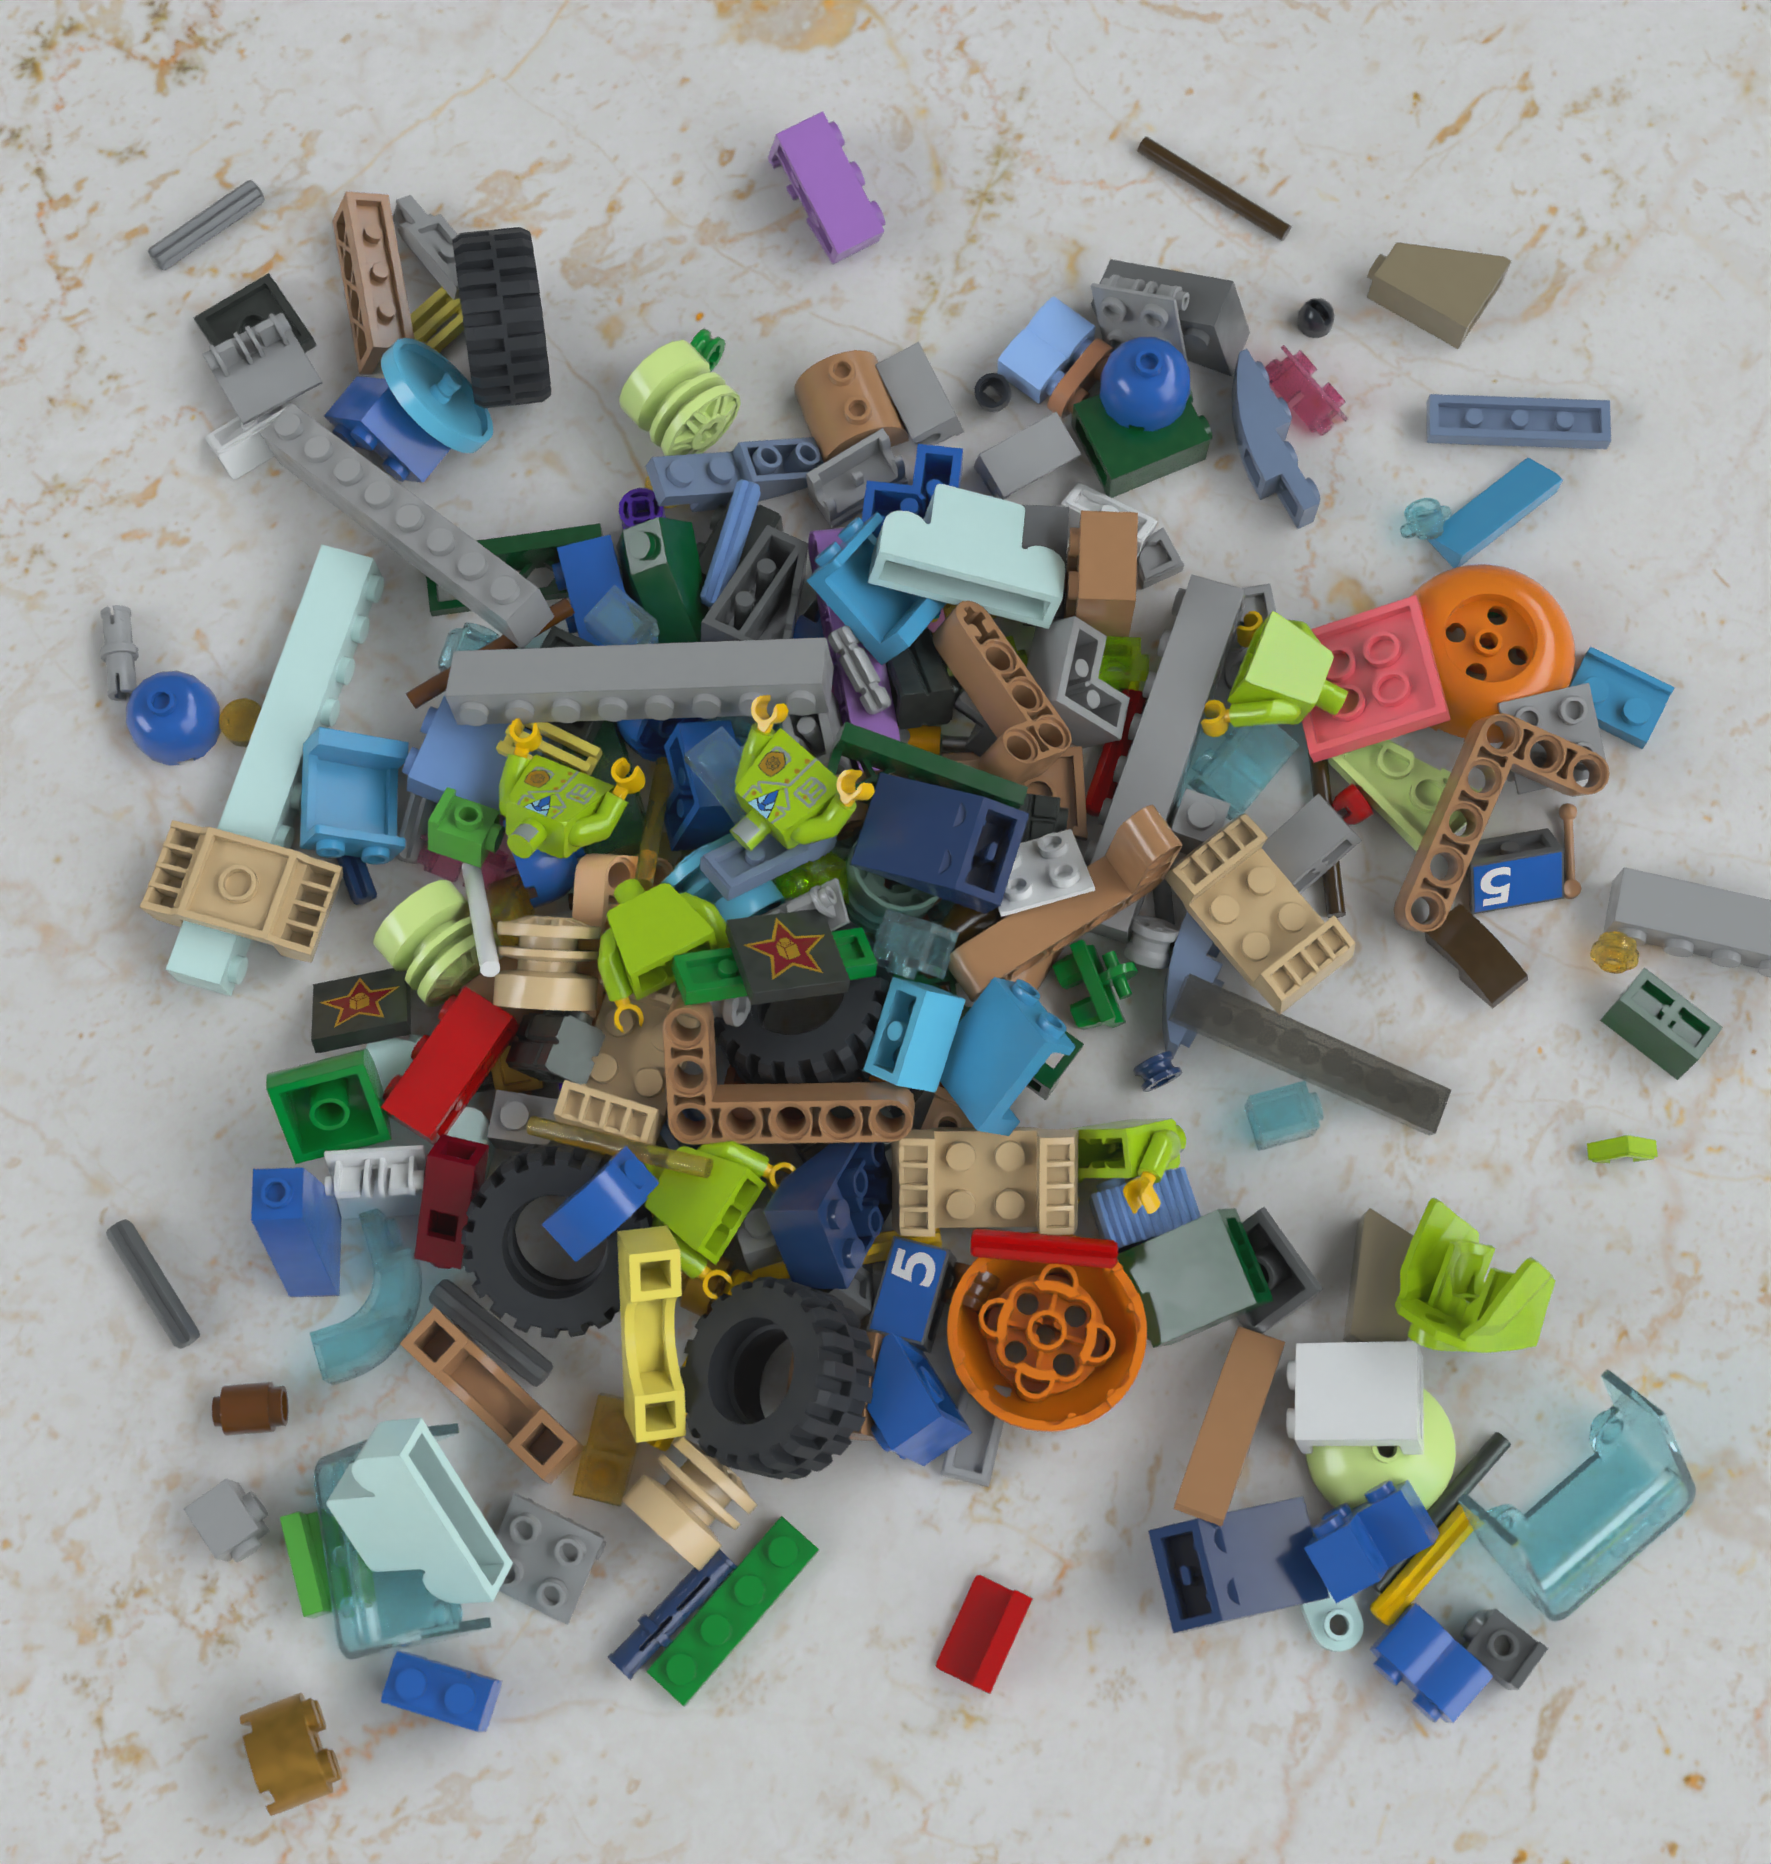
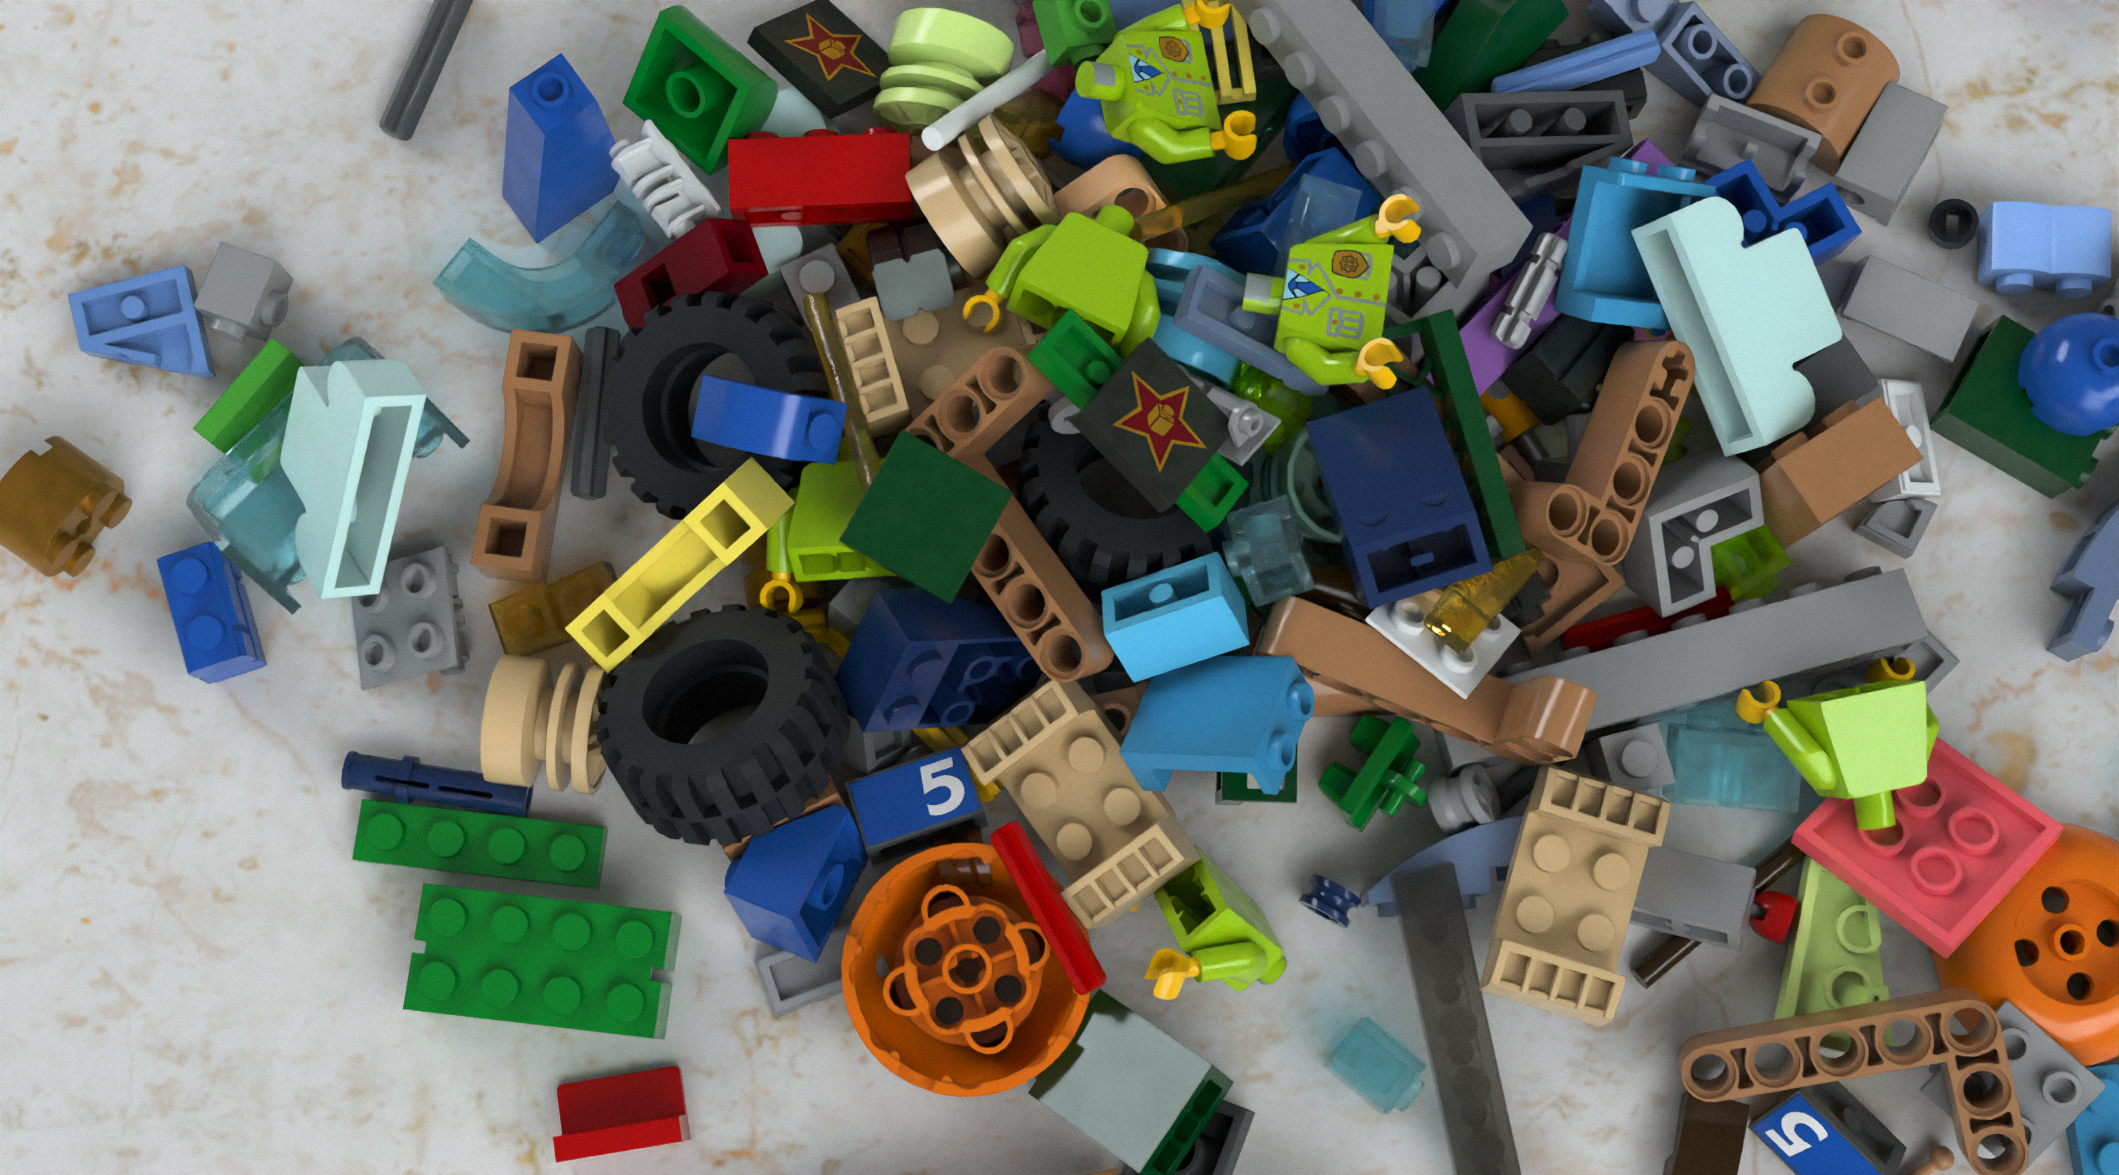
camera: 50 degrees right, 5 degrees up
(196, 1606) = (145, 323): none -> medium blue wing
(250, 1408) = (365, 237): reddish brown brick -> none
(741, 1144) = (925, 517): none -> dark green tile
(846, 1616) = (542, 961): none -> green piece
(1040, 842) = (1475, 602): none -> clear yellow slope
(1080, 378) = (2037, 302): nougat plate -> none
(1118, 1222) = (1189, 1017): medium blue brick -> none

